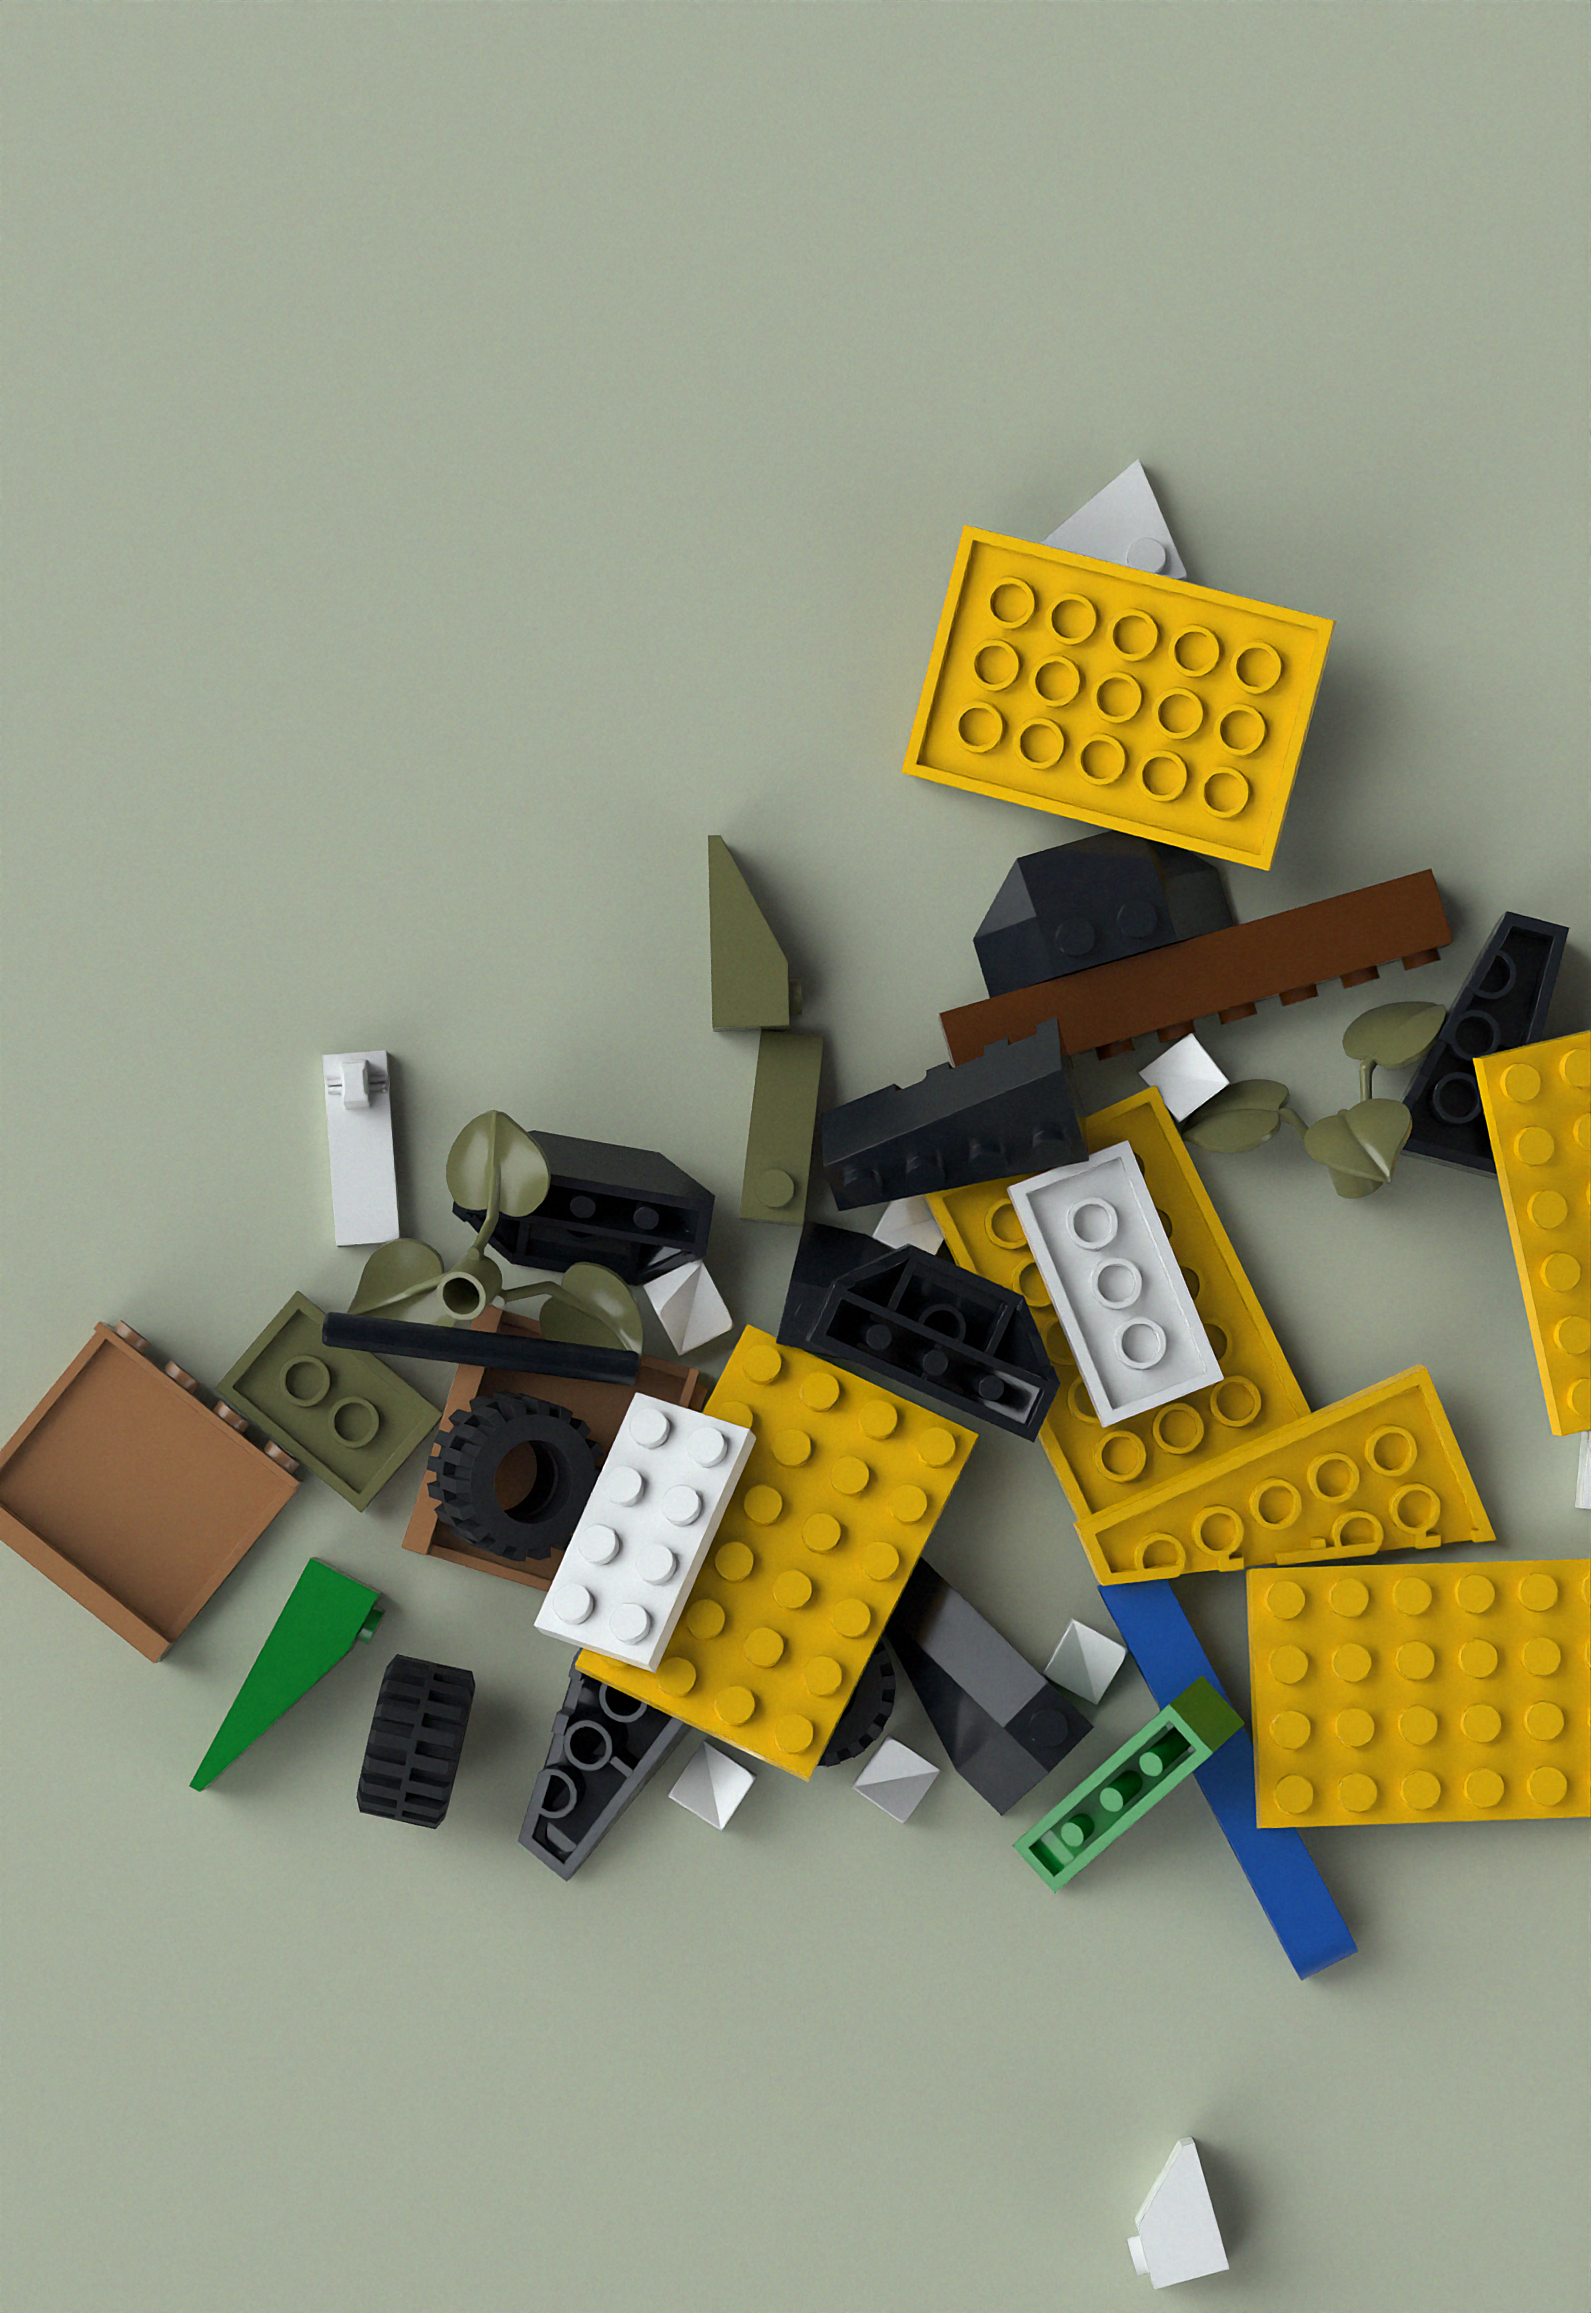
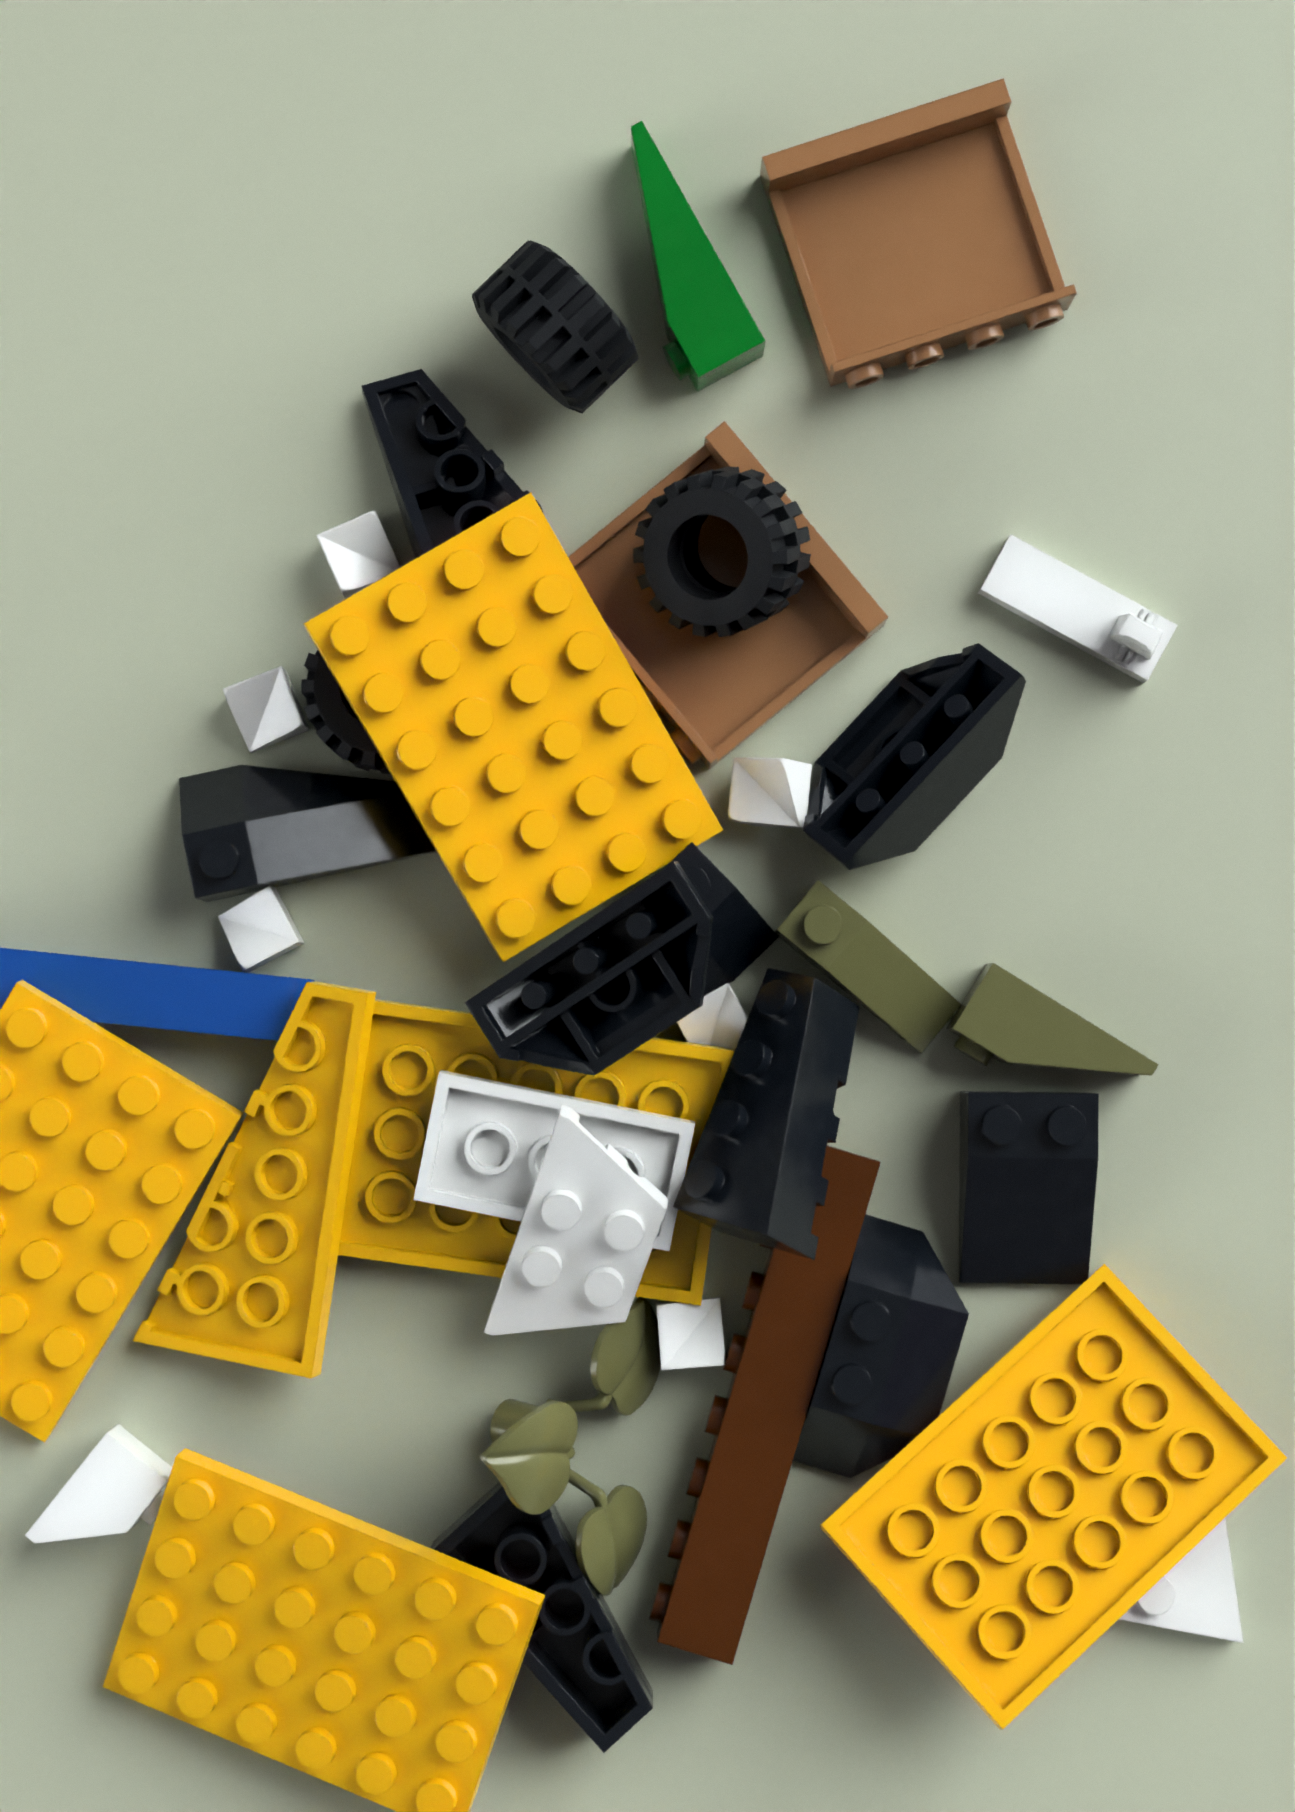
camera: 120 degrees right, 0 degrees up
(329, 1404) = (884, 445): olive plate -> none
(481, 1348) = (847, 591): black axle -> none
(505, 1171) = (929, 570): olive plant -> none
(645, 1532) = (603, 623): white plate -> none
(878, 878) = (1027, 1186): none -> black slope
(1128, 1784) = (129, 901): green slope -> none
(1166, 1221) = (578, 1238): none -> white wing

